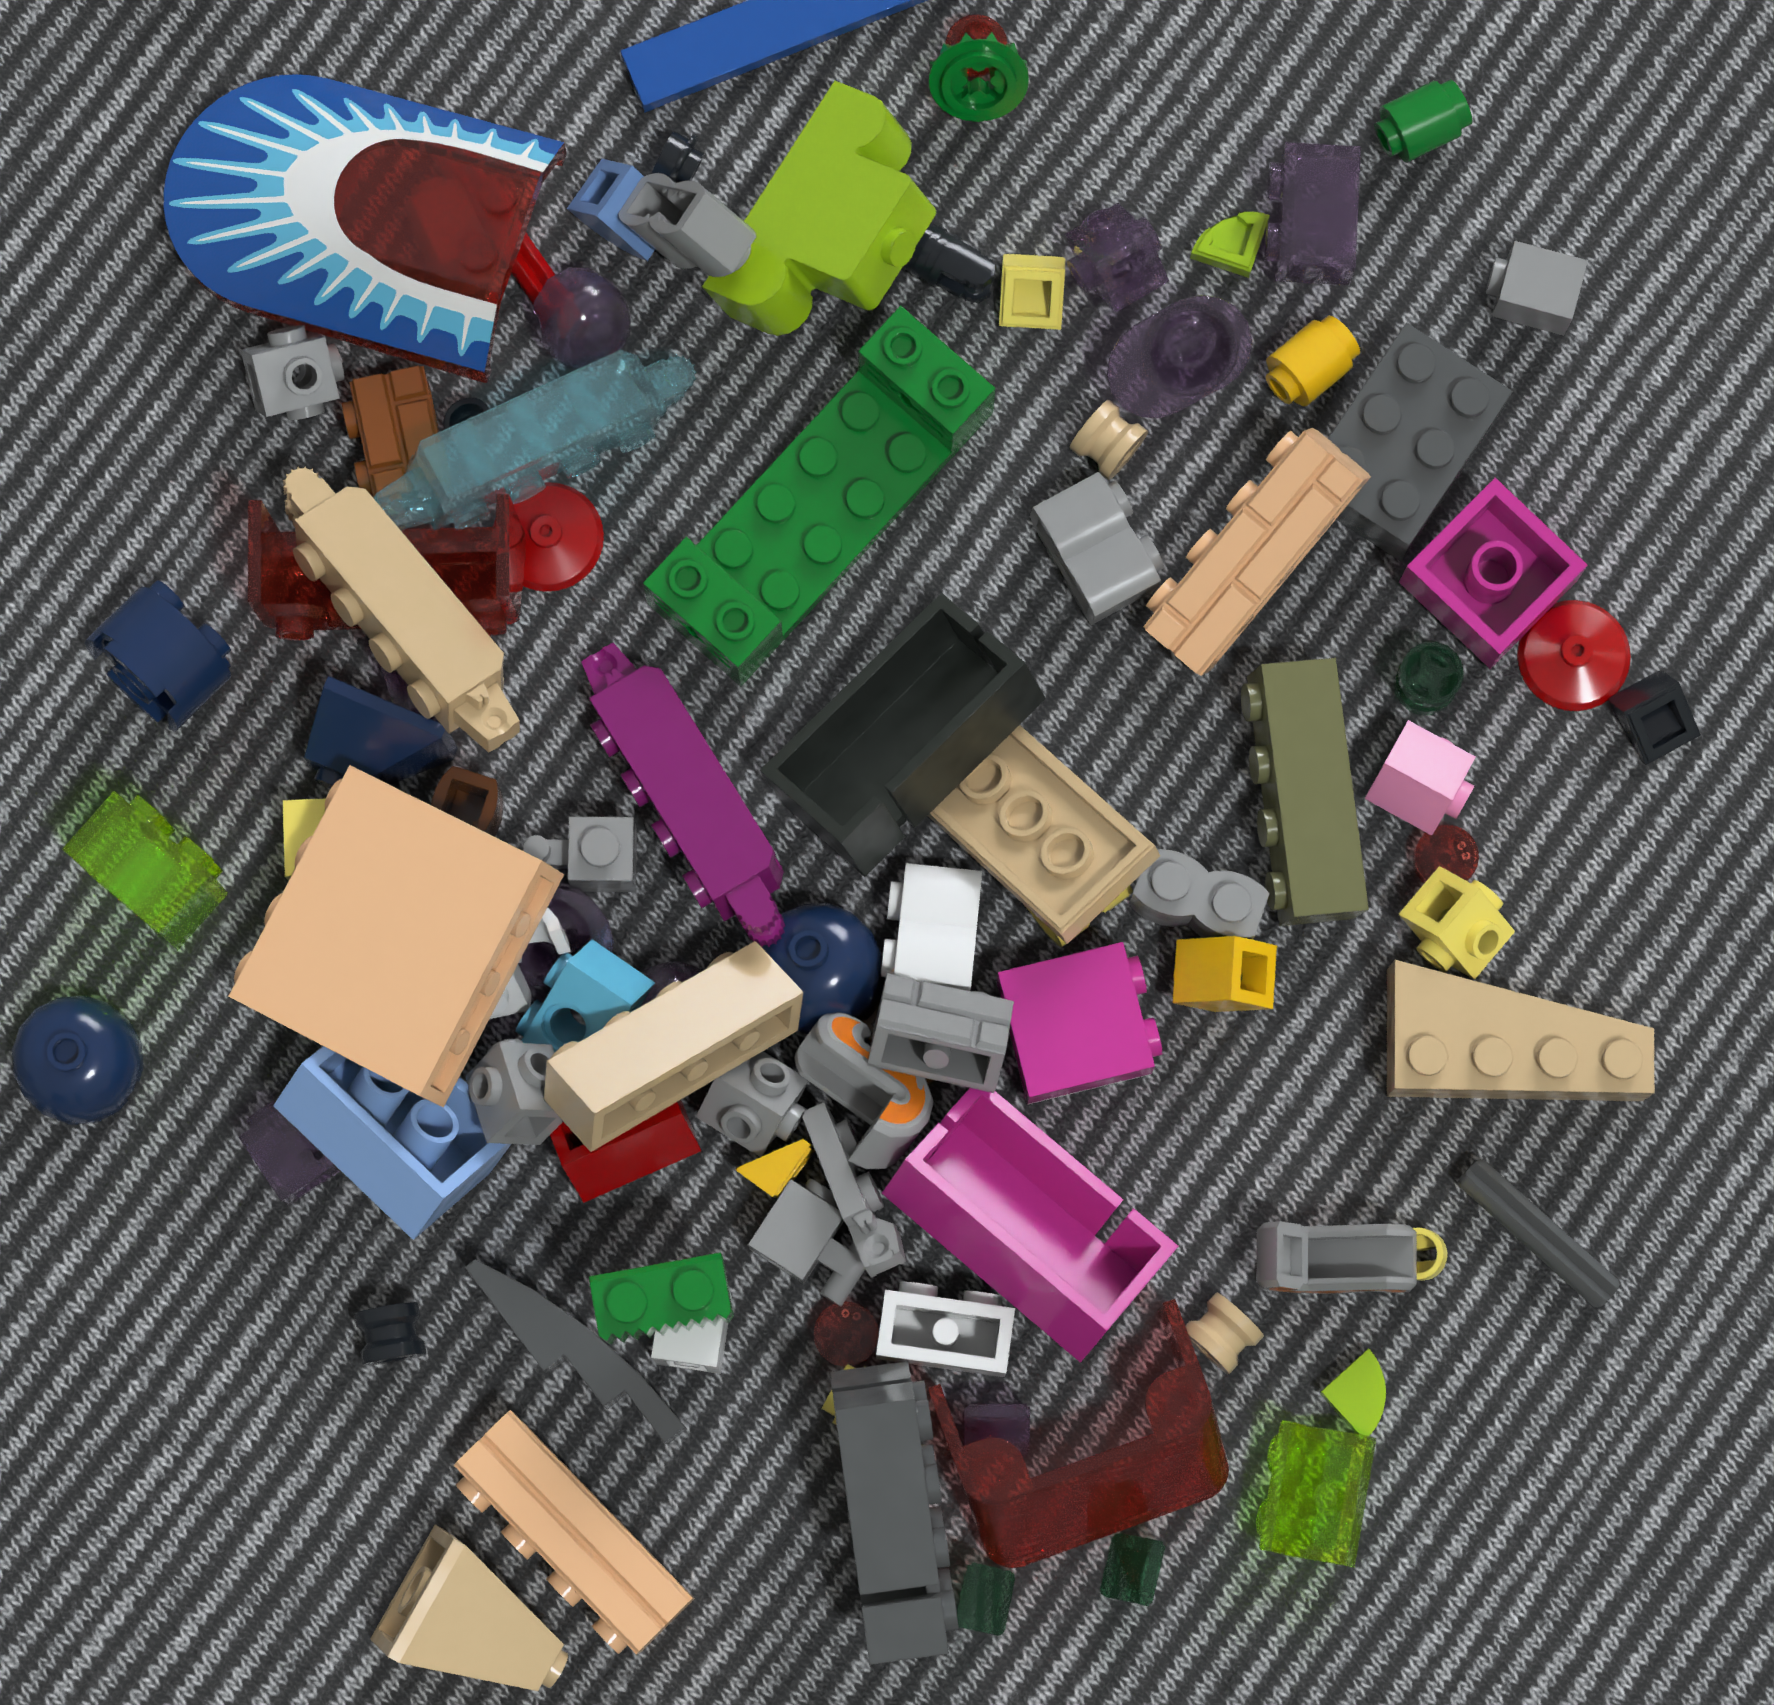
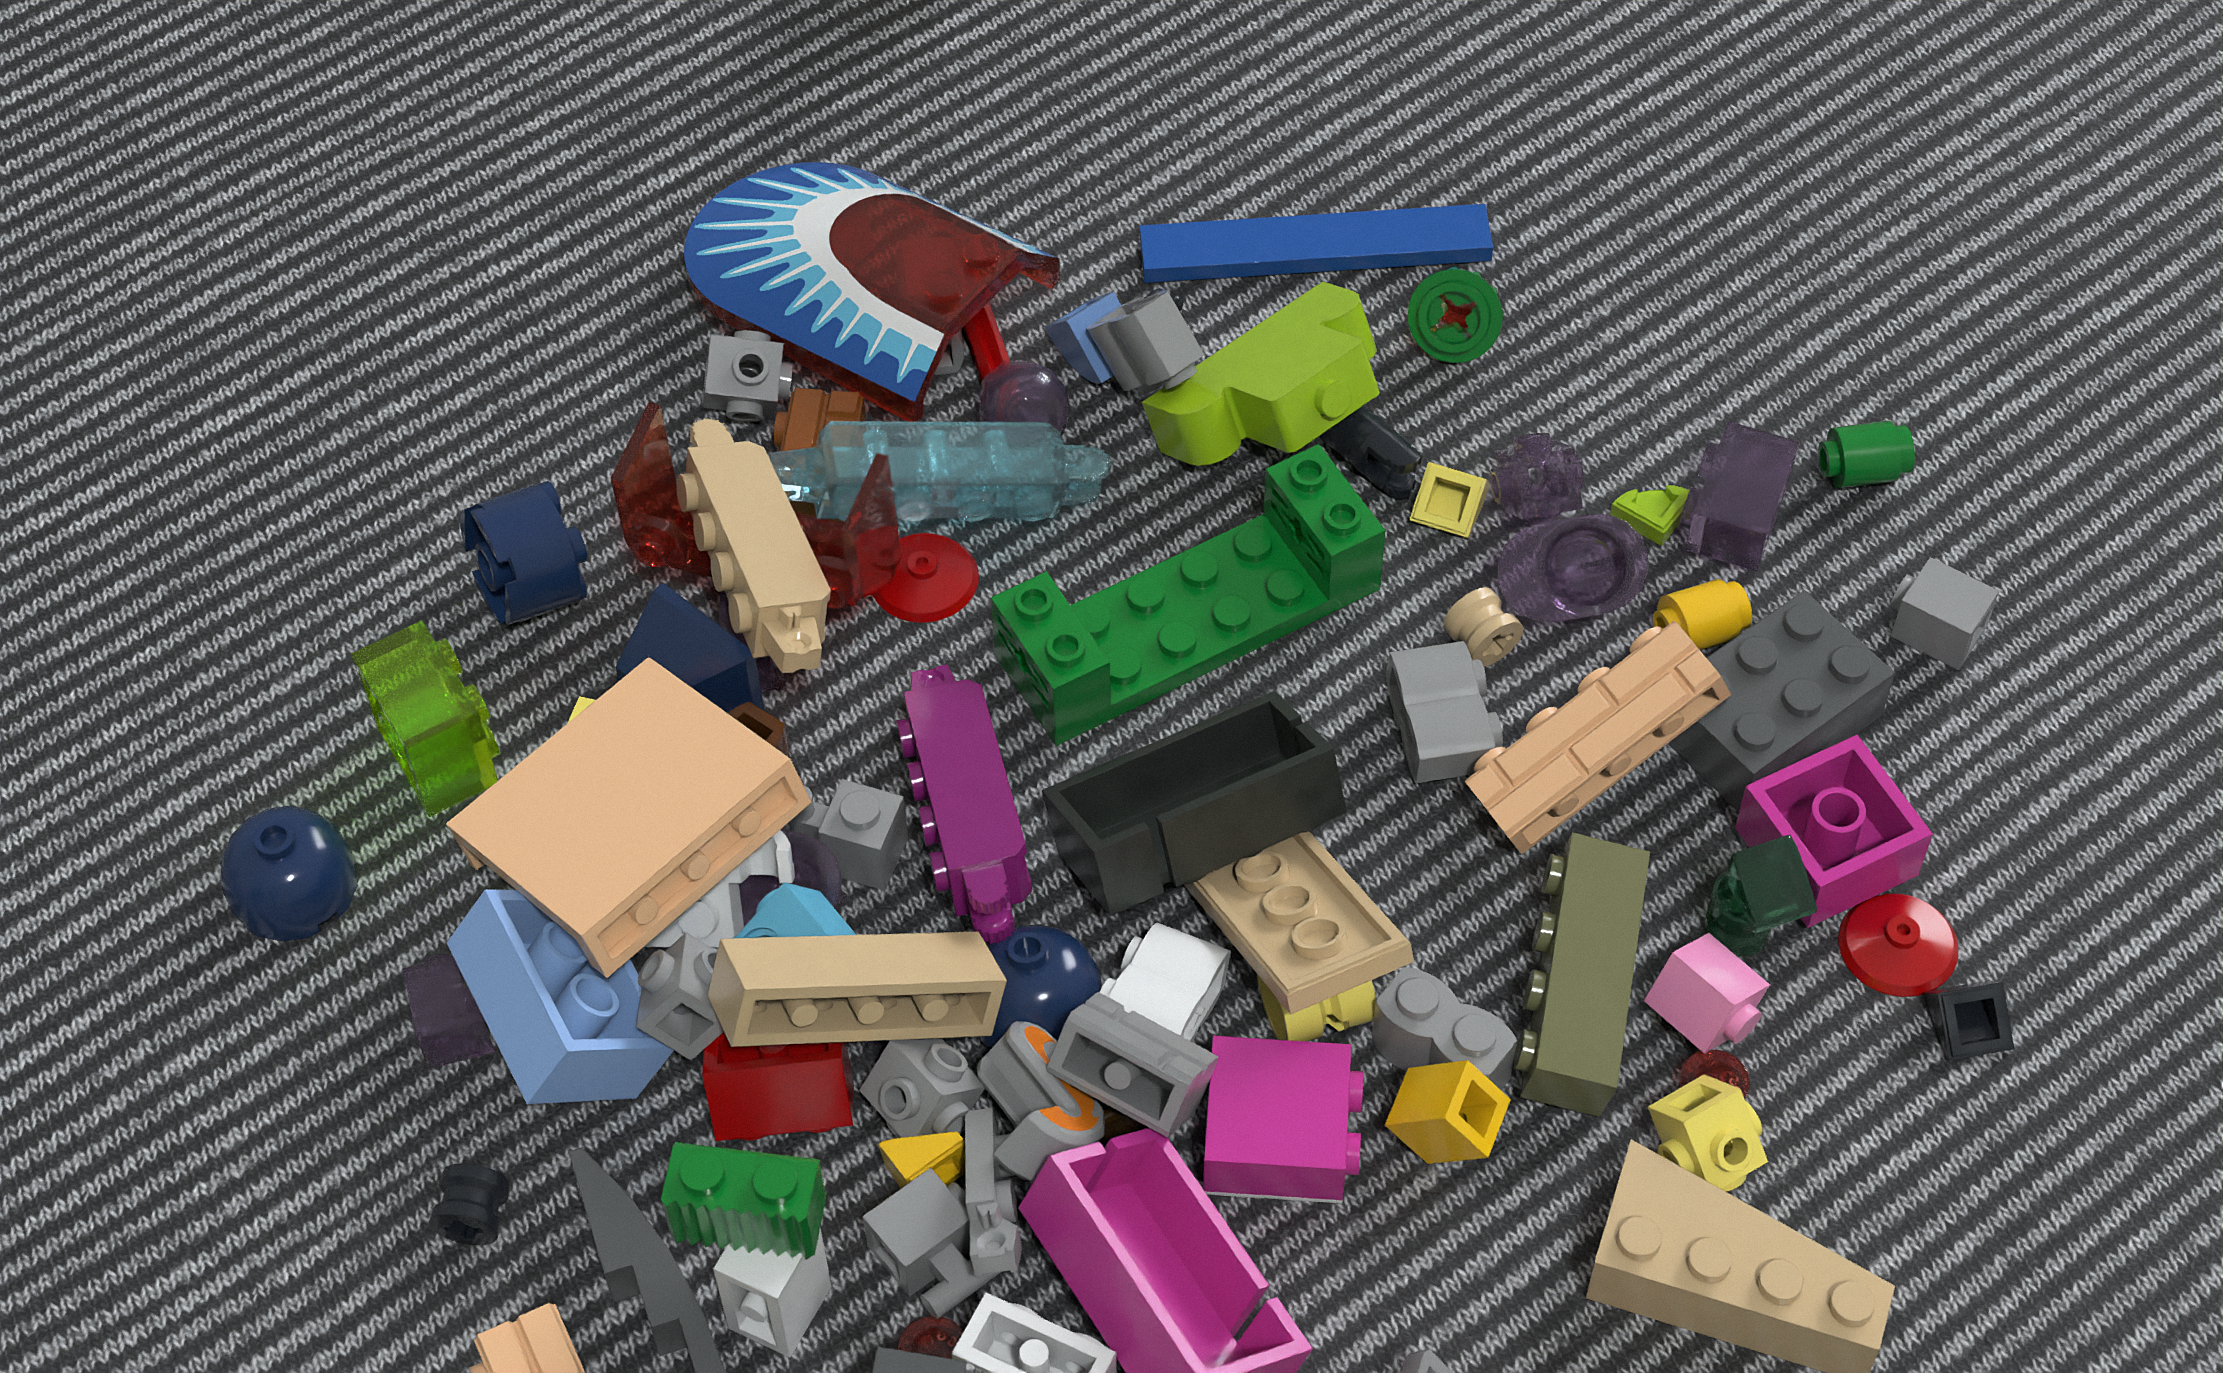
camera: 20 degrees right, 25 degrees down
(1455, 664) = (1771, 884): none -> clear green slope

